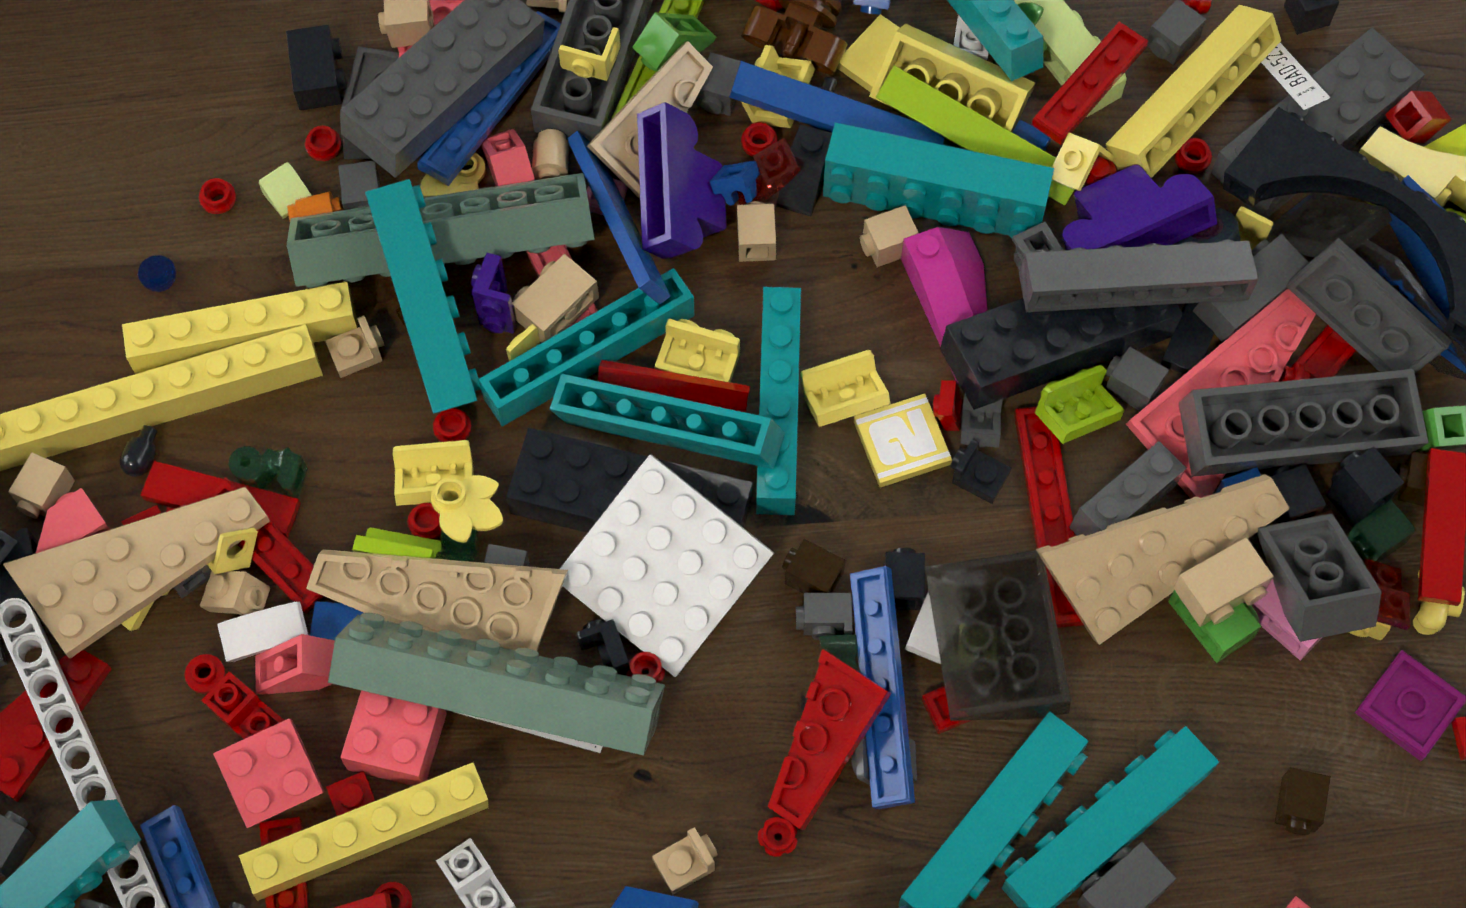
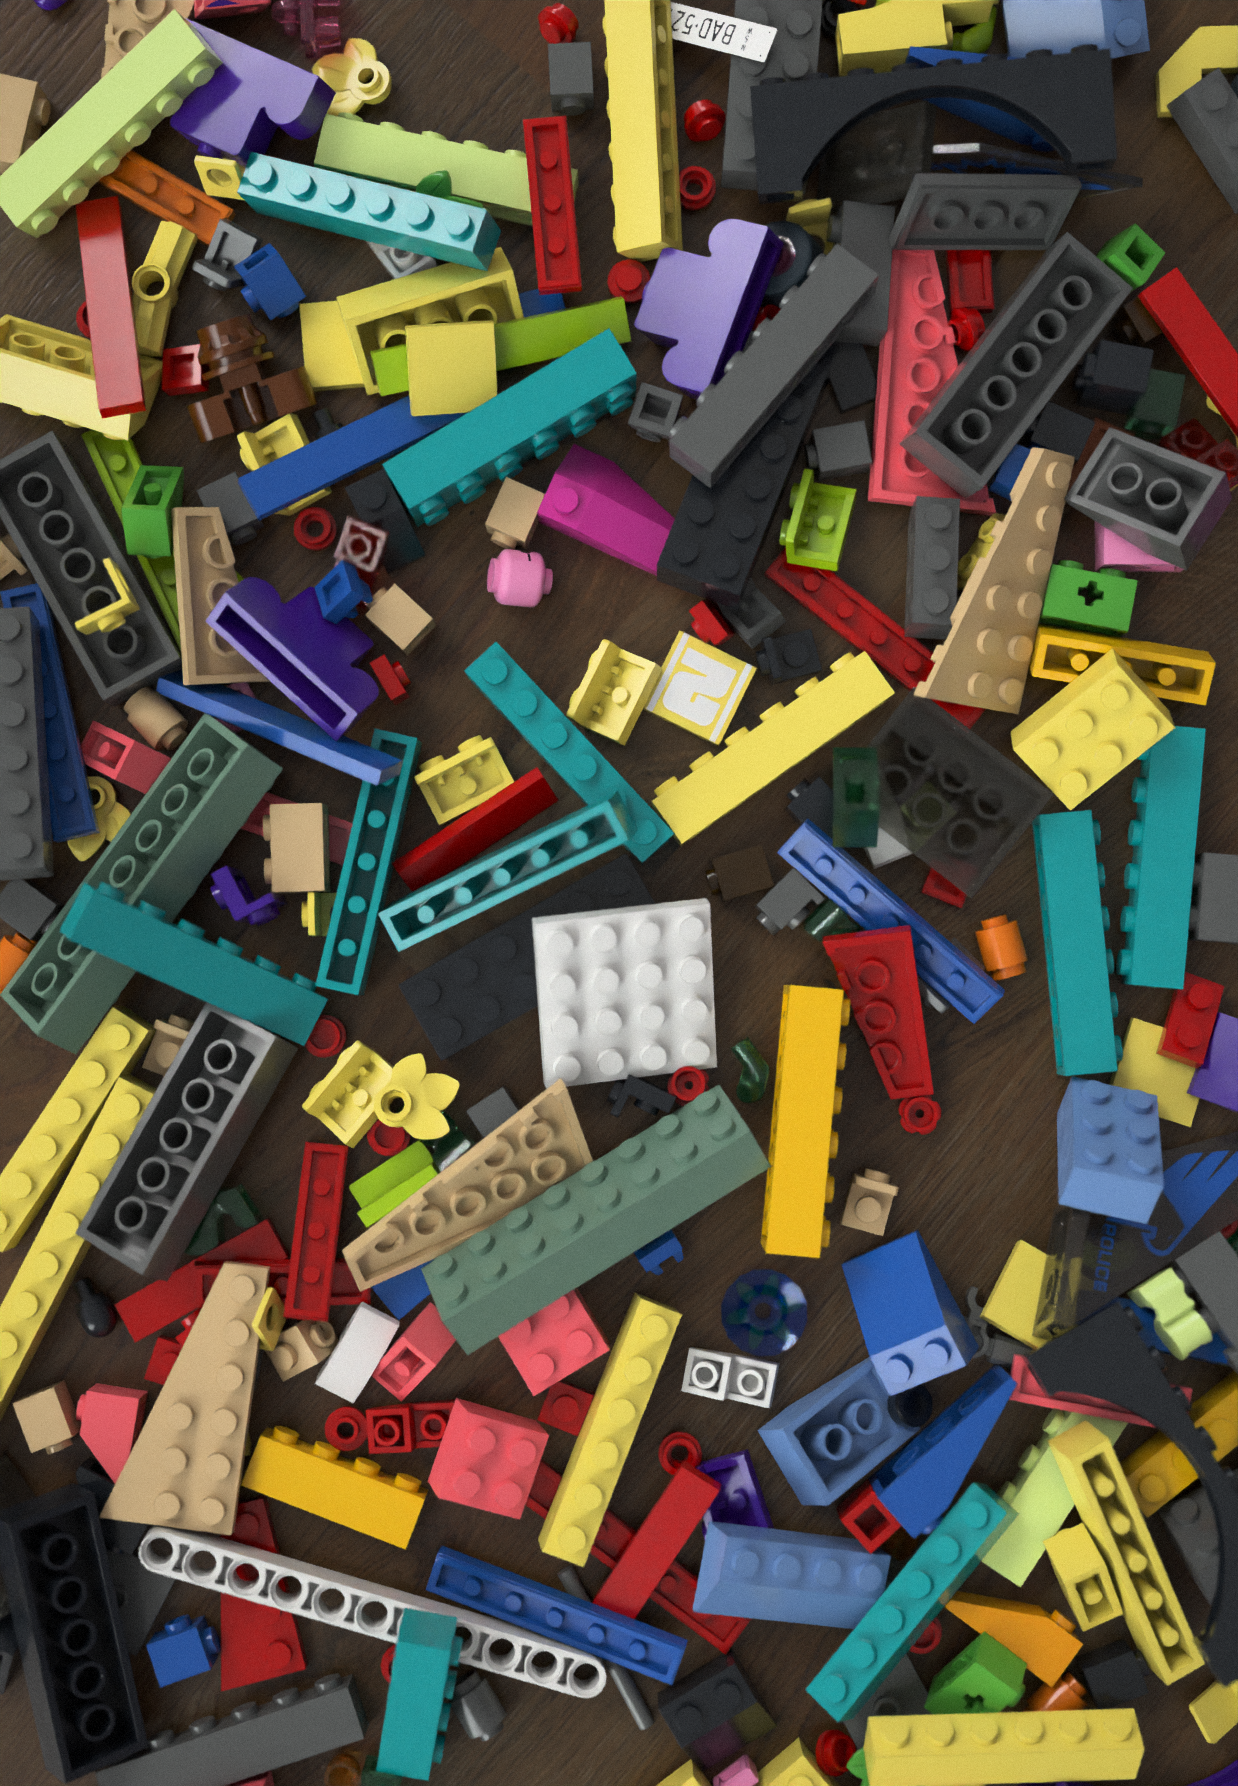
camera: 45 degrees left, 20 degrees up
(159, 702) = (335, 1486): none -> yellow brick
(304, 397) = (186, 1142): none -> dark grey brick
(318, 531) = (316, 1232): none -> red tile
(519, 747) = (658, 1251): none -> blue tile
(536, 842) = (769, 1334): none -> clear blue dish
(695, 706) = (754, 1072): none -> clear green arm
(695, 754) = (803, 1120): none -> yellow brick
(714, 260) = (392, 678): none -> red plate
(854, 273) = (519, 578): none -> bright pink head
(911, 513) = (772, 747): none -> light yellow brick
(932, 577) = (855, 797): none -> clear green slope
(935, 111) = (450, 366): none -> light yellow tile
(941, 779) = (1001, 947): none -> orange brick
(1076, 161) = (610, 294): light yellow bracket -> none
(1137, 685) = (1091, 729): none -> light yellow brick
(1199, 670) = (1165, 669): none -> yellow brick
(1223, 583) = (1083, 576): tan brick -> none
(1234, 122) = (703, 120): none -> red plate

